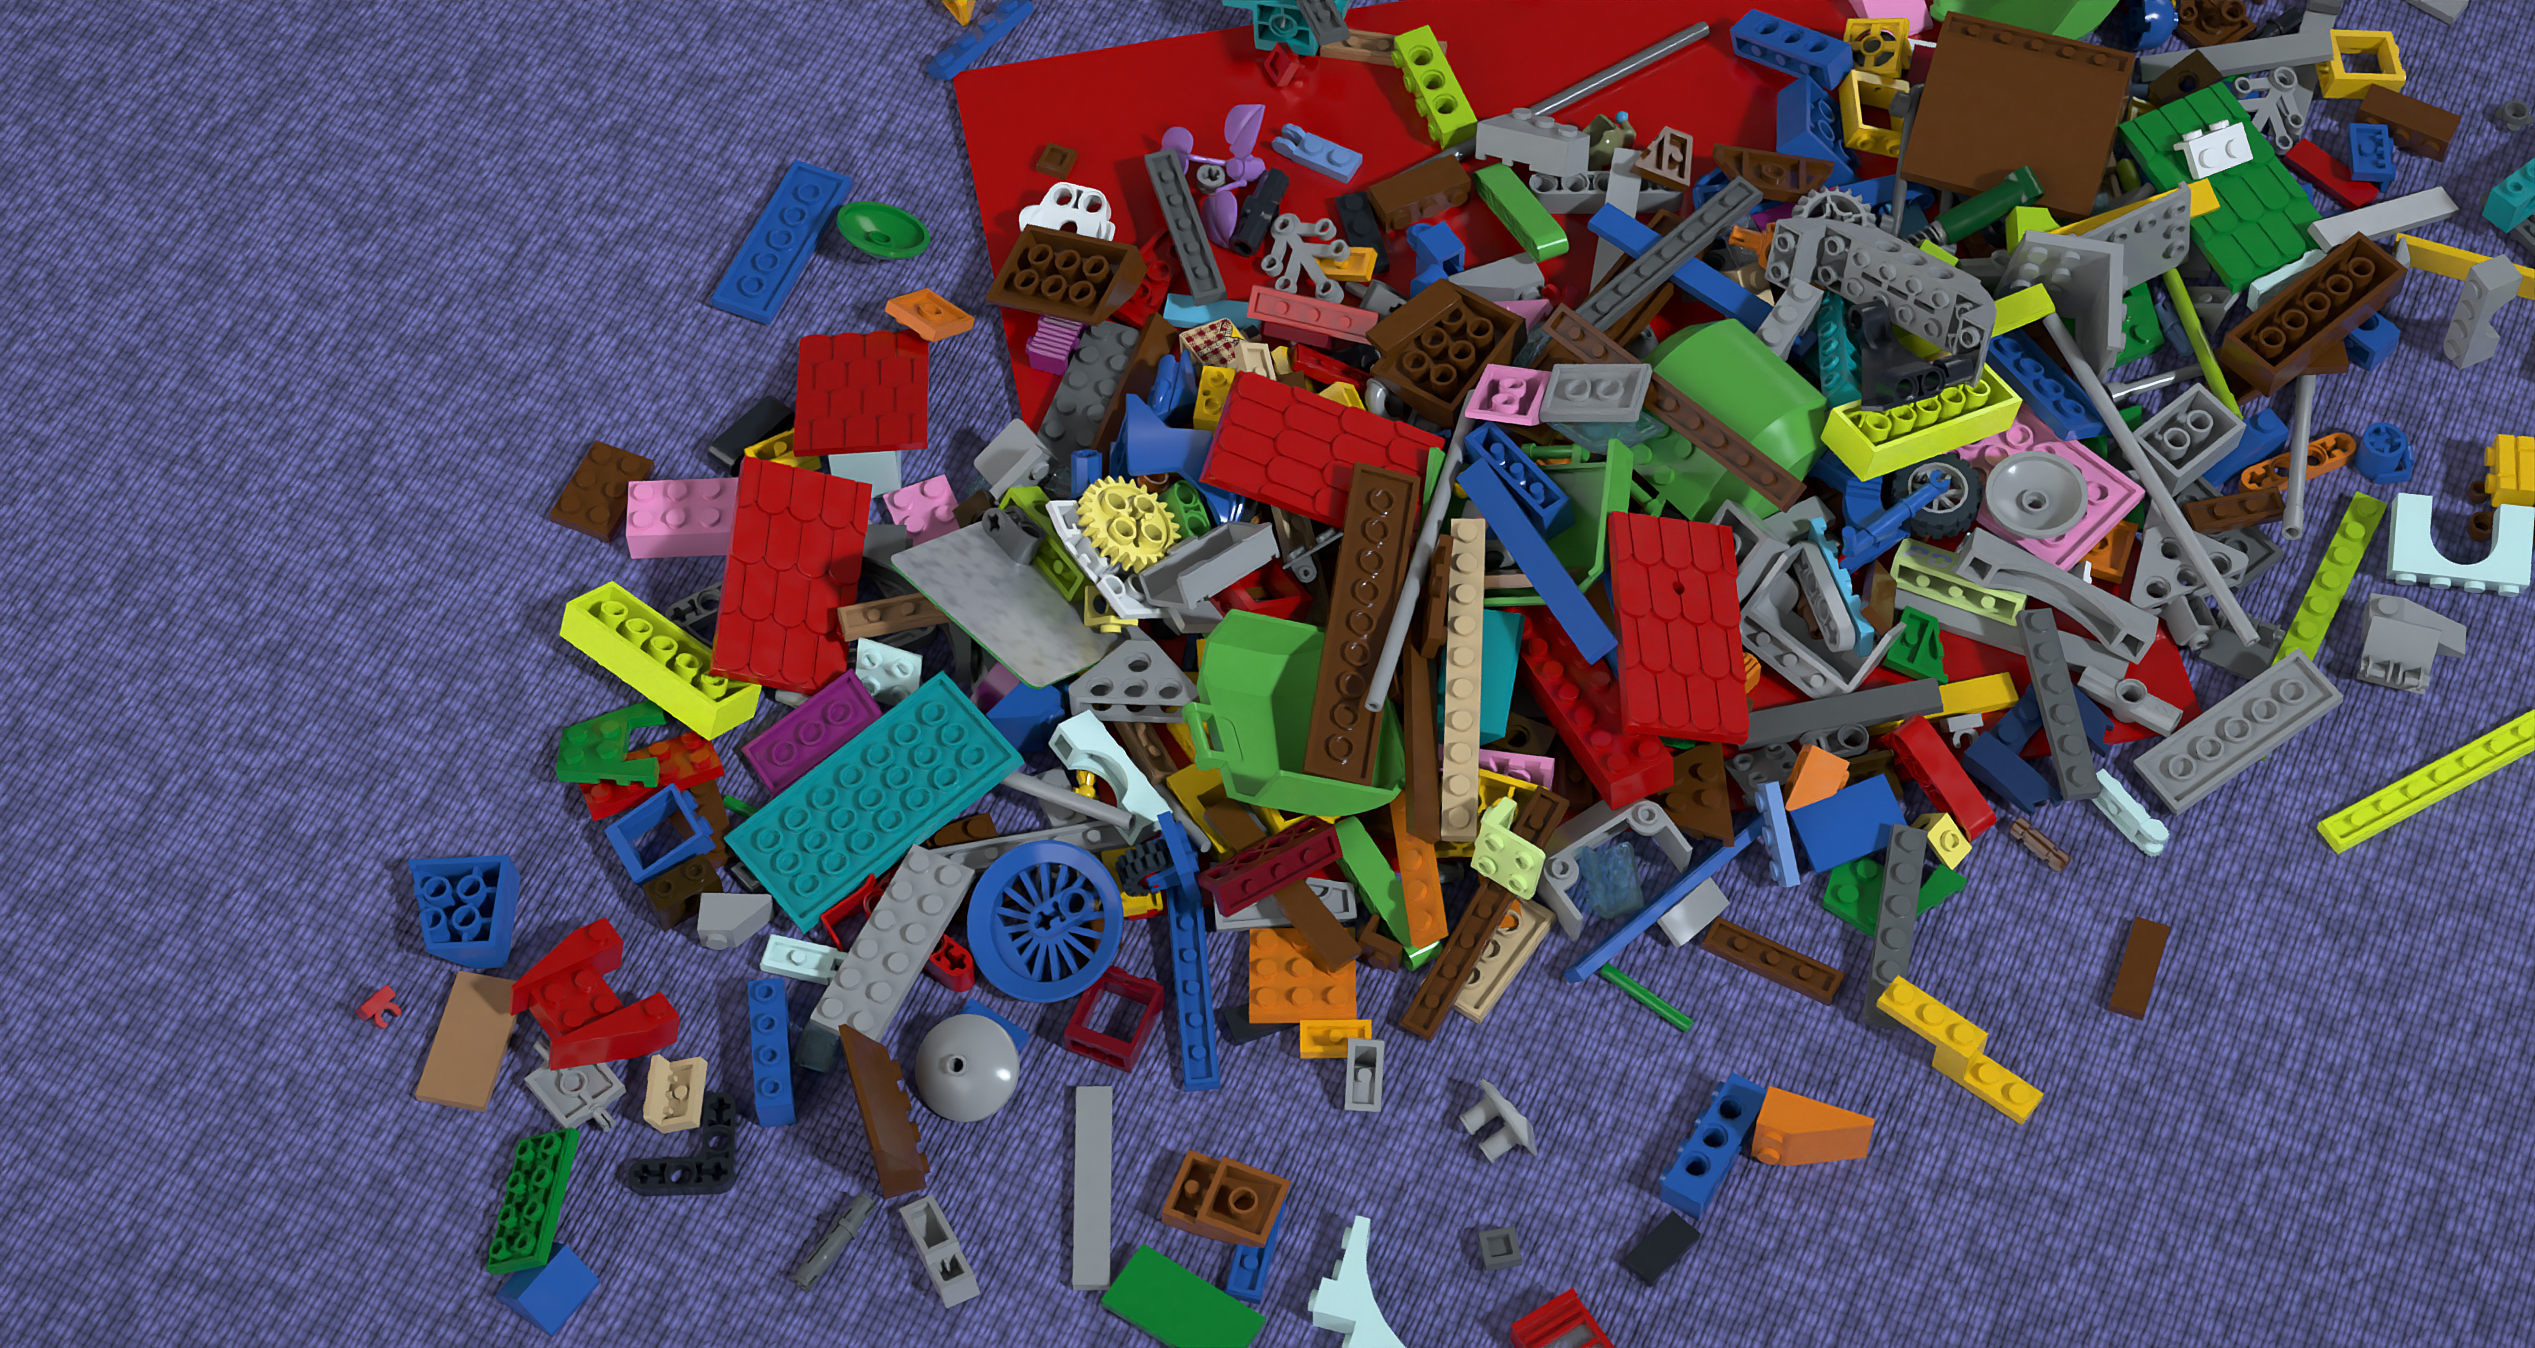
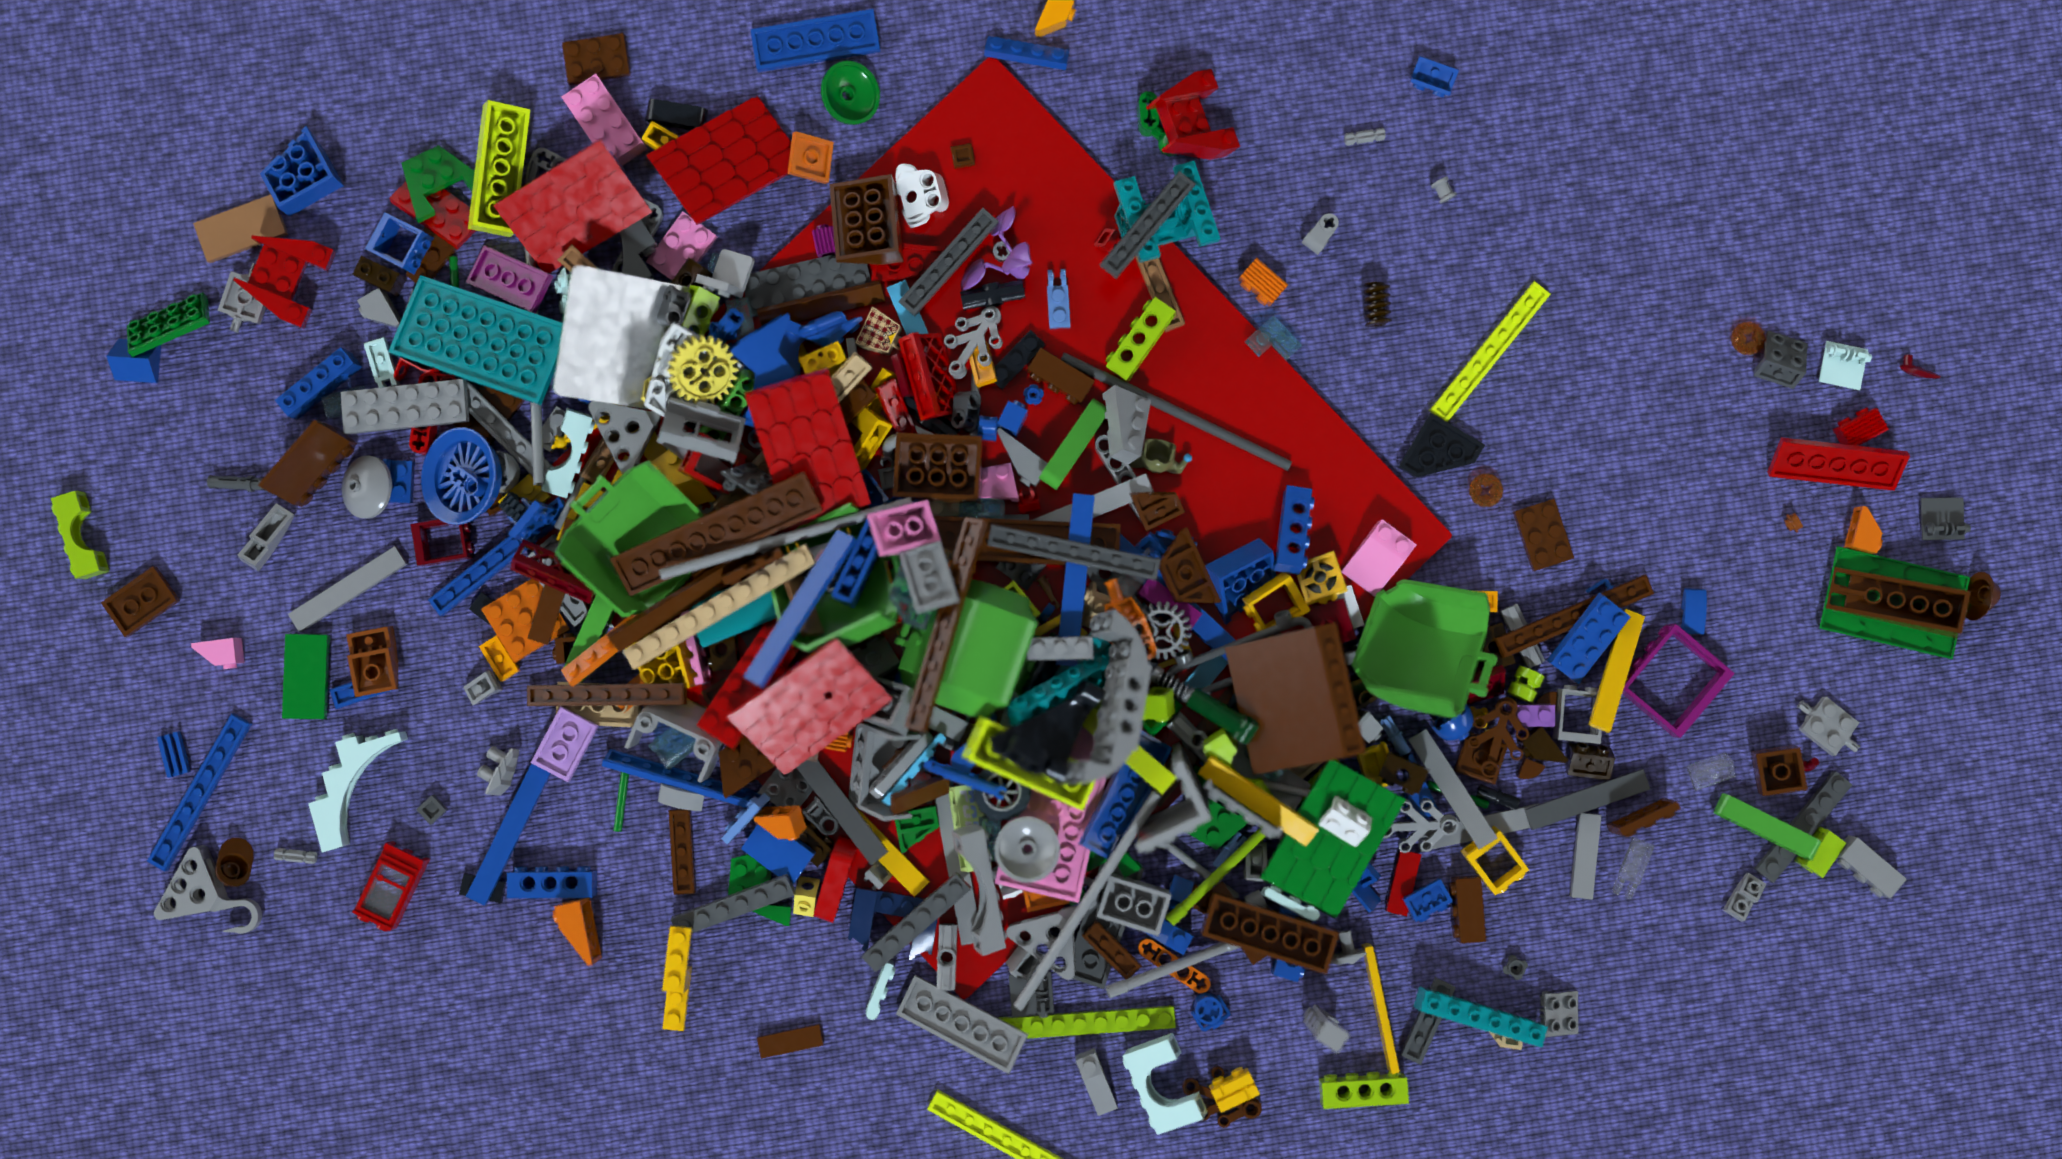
camera: 60 degrees right, 30 degrees up
(376, 1004) = (227, 167): red tile -> none
(675, 1093) = (268, 350): tan bracket -> none
(708, 1162) = (247, 392): black beam -> none
(1414, 318) = (941, 437): reddish brown tile -> none
(1506, 855) = (635, 677): yellowish green bracket -> none
(1519, 1016) = (564, 744): none -> lavender tile
(1594, 1151) = (508, 835): none -> blue tile
(2040, 844) = (835, 951): reddish brown axle -> none
(2384, 218) = (1373, 935): light grey tile -> none
(2398, 654) = (1067, 1084): light grey hinge -> none

